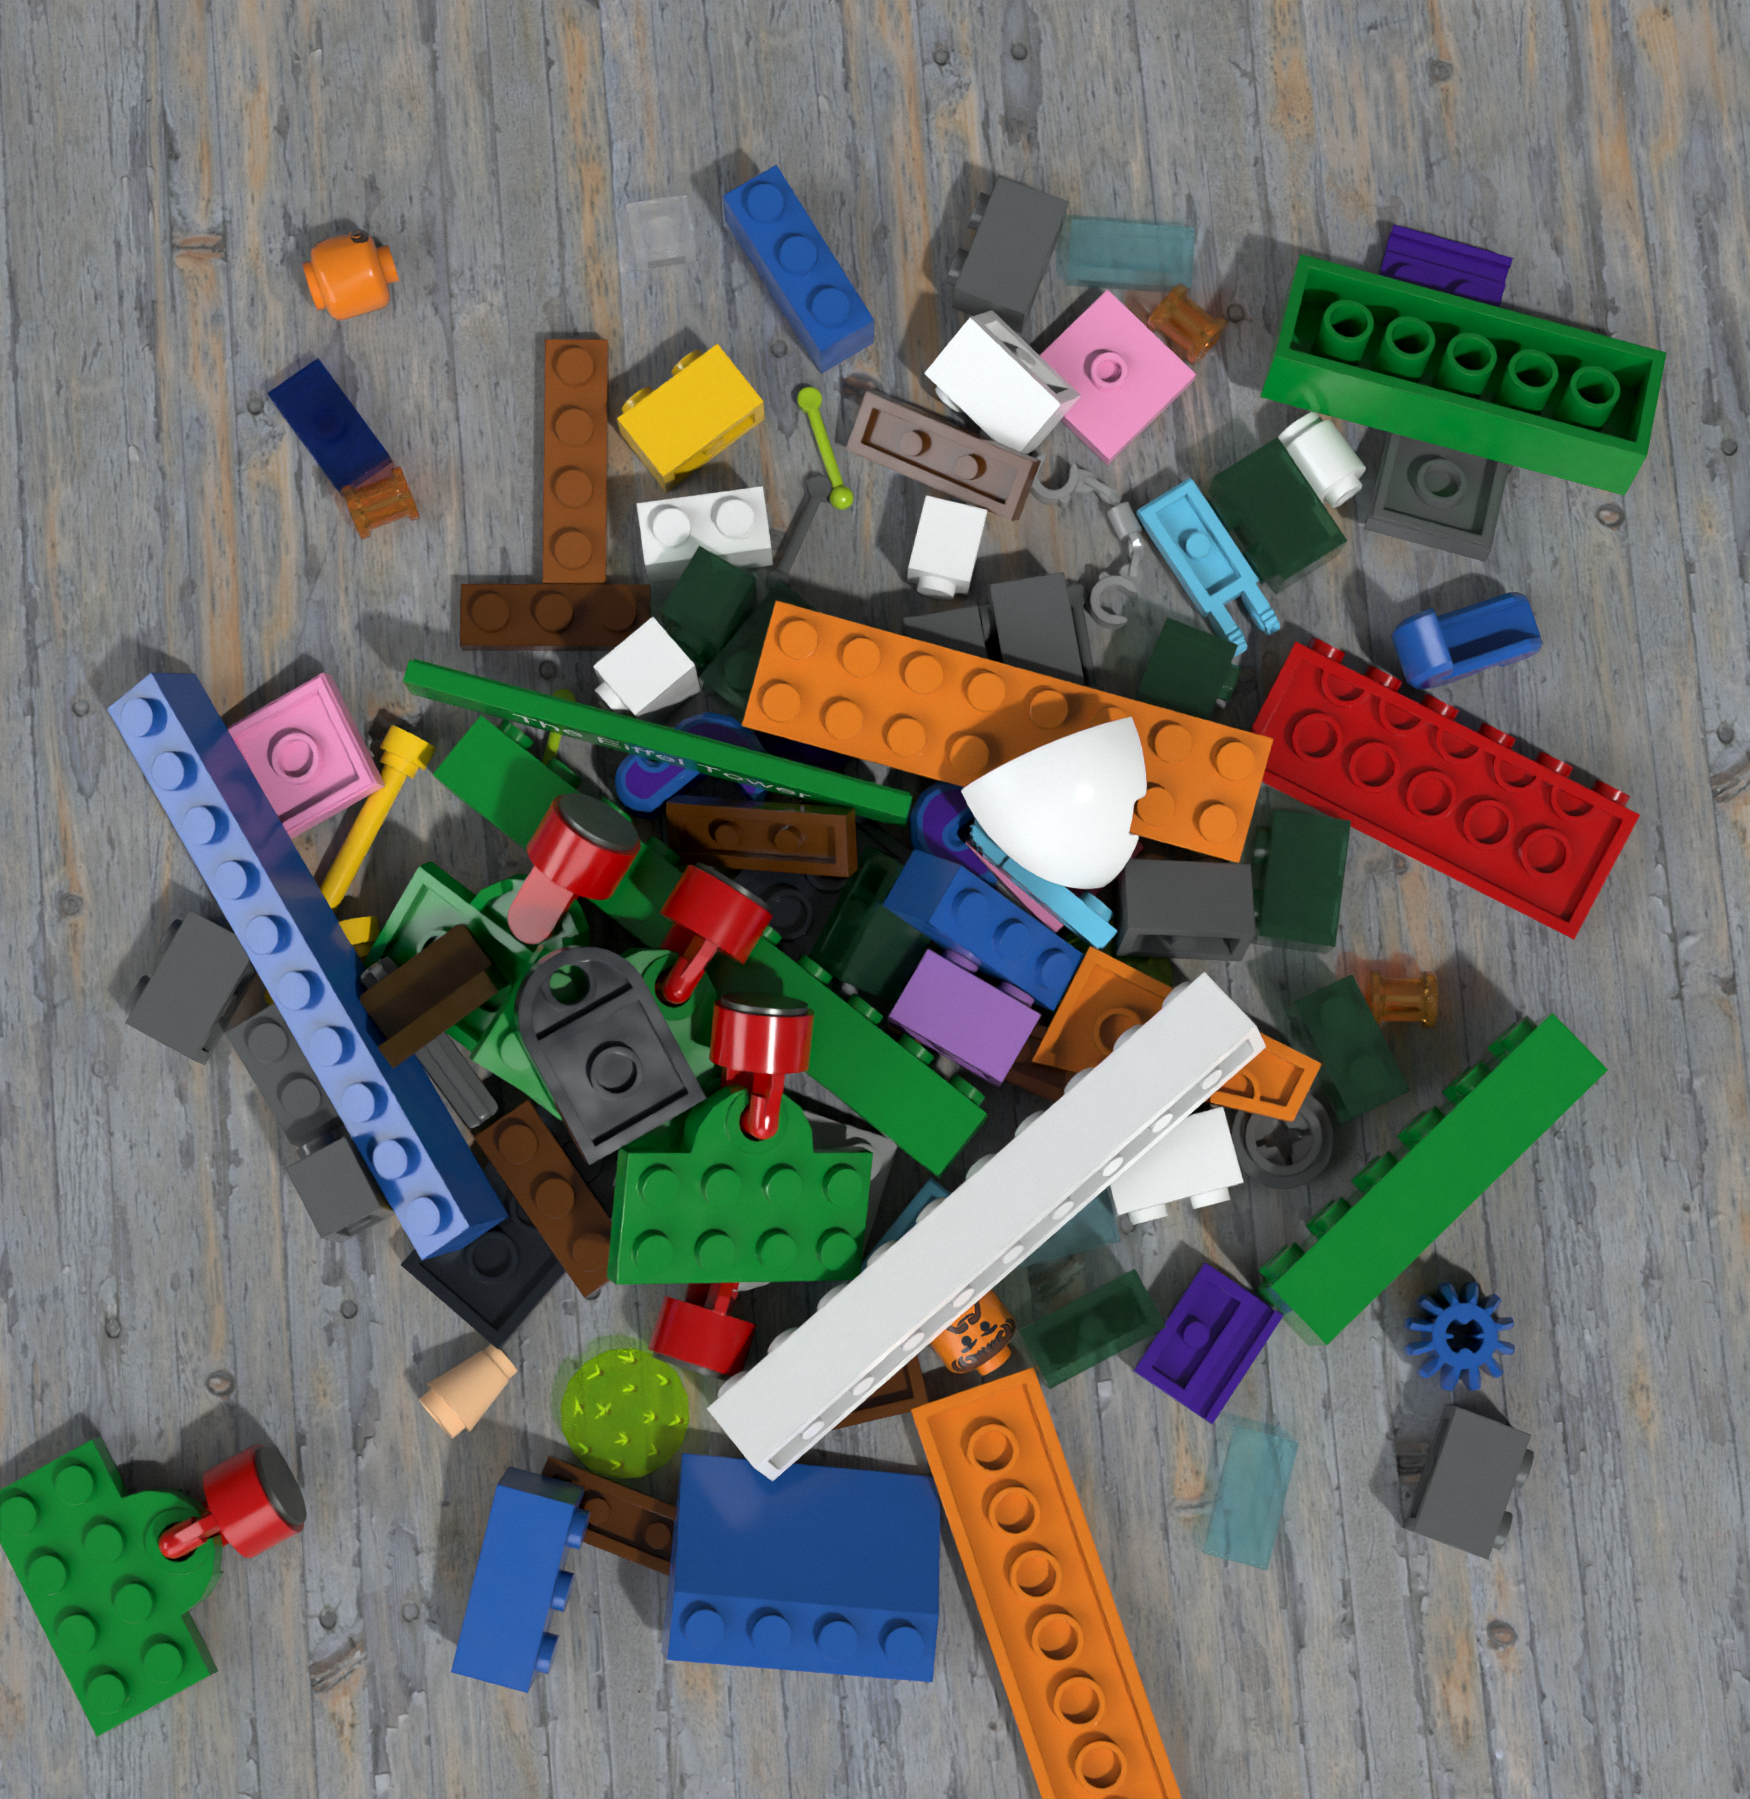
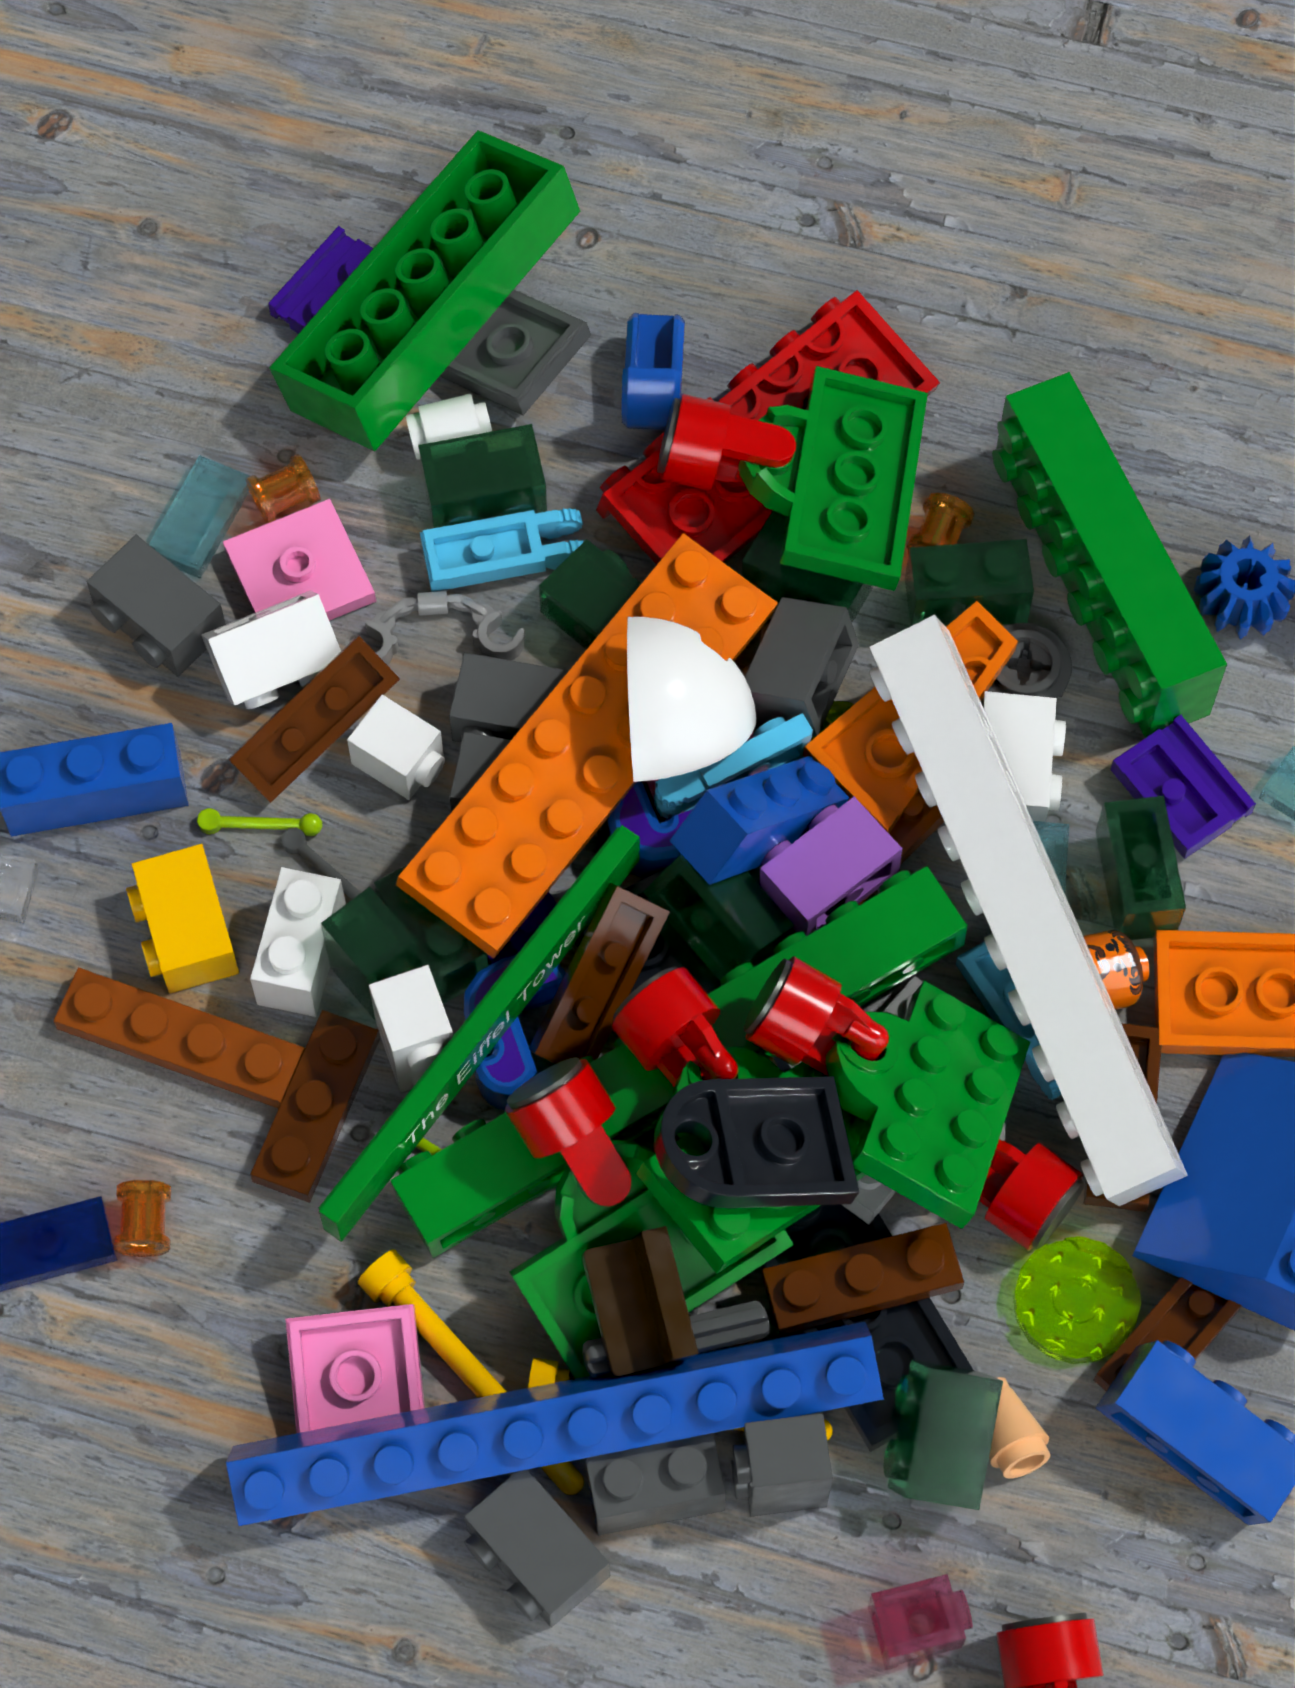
camera: 65 degrees left, 15 degrees down
(226, 1359) = (932, 1597): none -> clear pink brick
(426, 1328) = (942, 1434): none -> clear green brick
(1403, 857) = (833, 469): none -> green plate

